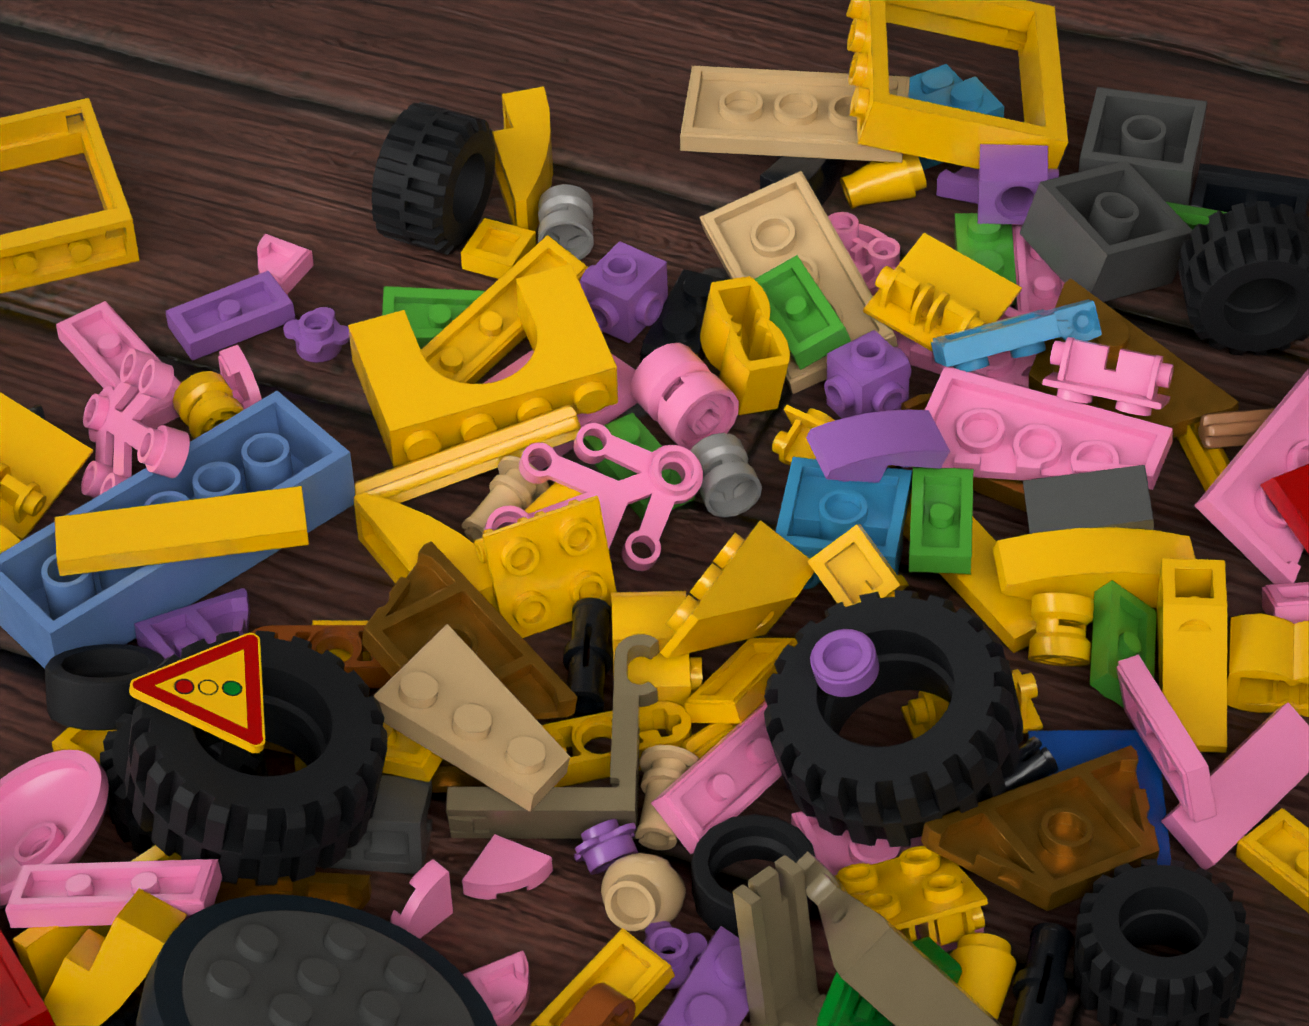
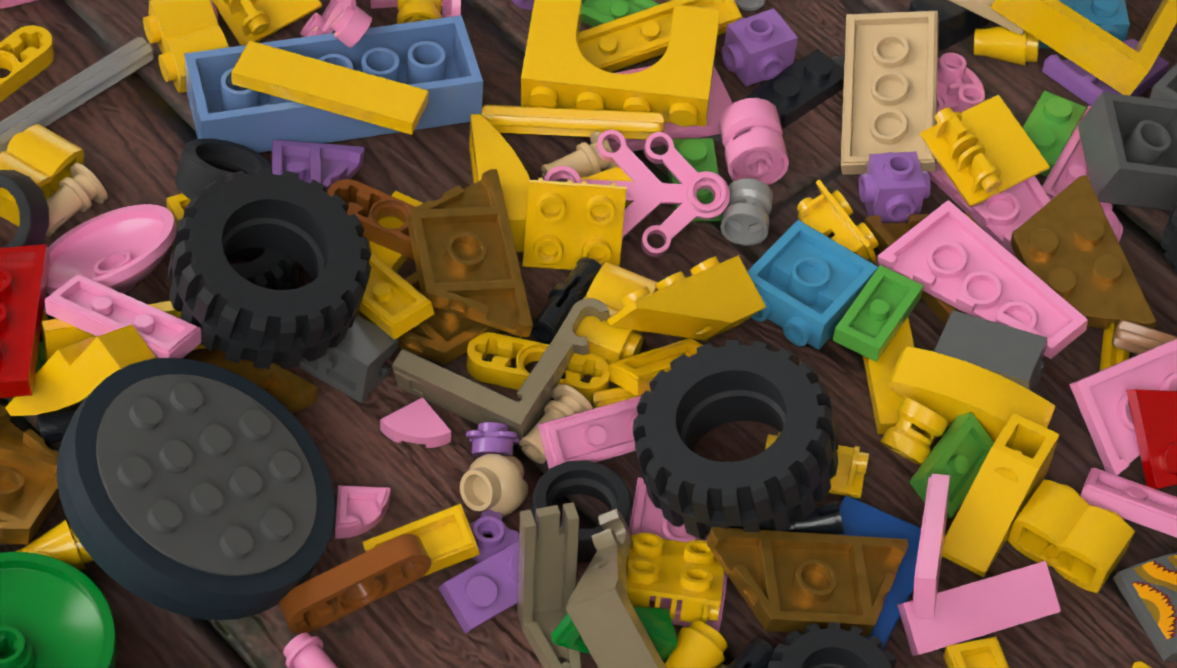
camera: 20 degrees right, 5 degrees up
(213, 691) = (245, 208): piece -> none
(429, 902) = (343, 426): bright pink tile -> none
(472, 721) = (441, 309): tan wing -> none
(745, 343) = (818, 122): yellow brick -> none
(802, 312) = (869, 115): bright green plate -> none
(844, 663) = (711, 384): medium lavender tile -> none
(855, 568) = (789, 324): yellow bracket -> none
(867, 443) = (851, 232): medium lavender slope -> none
(1010, 180) = (1086, 79): medium lavender brick -> none
(1020, 335) = (1016, 200): dark azure hinge -> none
(1131, 384) = (1073, 274): bright pink hinge -> none

